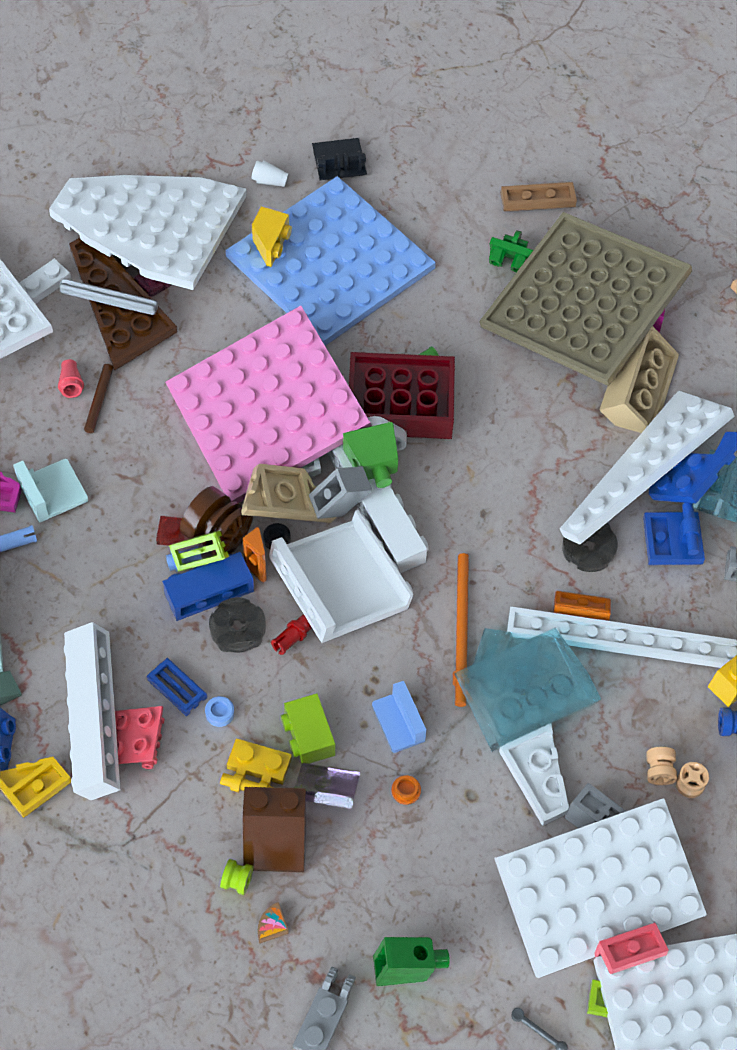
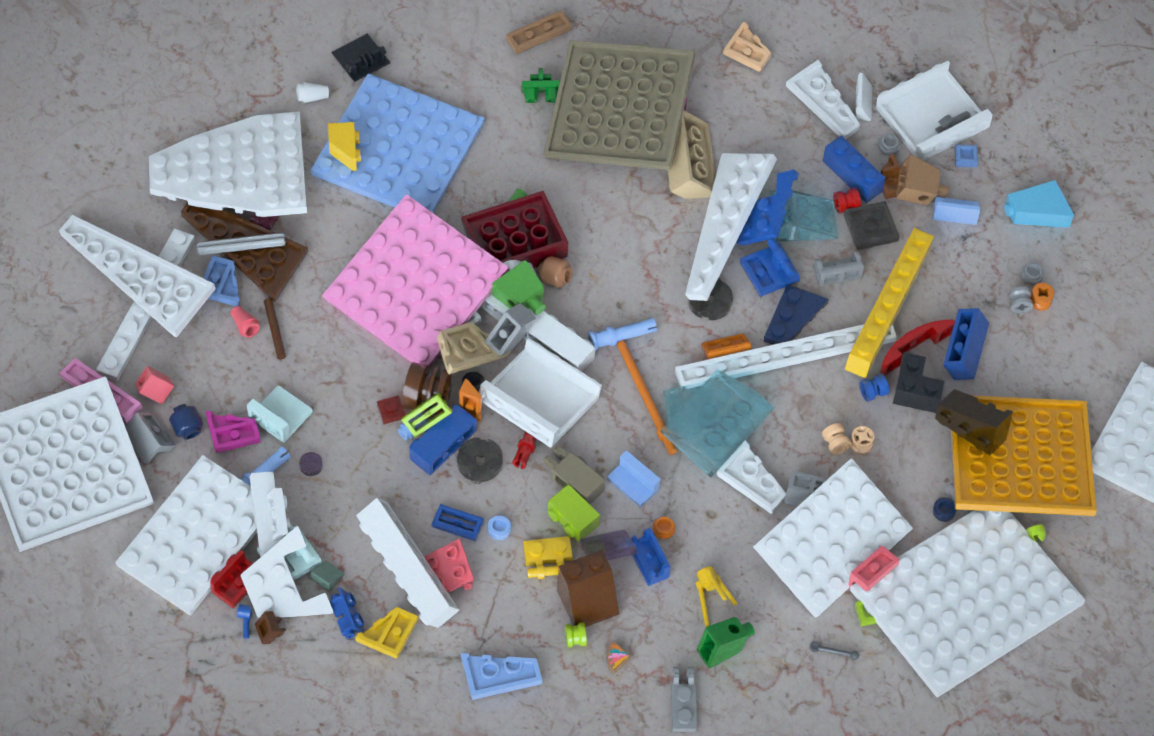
camera: 25 degrees left, 0 degrees up
(54, 556) = (311, 464): none -> clear purple tile
(71, 329) = (222, 274): none -> medium blue wing
(121, 886) = (498, 675): none -> light blue wing
(334, 687) = (576, 473): none -> dark tan hinge
(370, 819) = (650, 558): none -> blue hinge
(428, 449) = (555, 271): none -> nougat head
(428, 878) = (710, 581): none -> yellow plant
(456, 544) = (613, 335): none -> light blue pin
(676, 598) = (792, 314): none -> dark blue wing

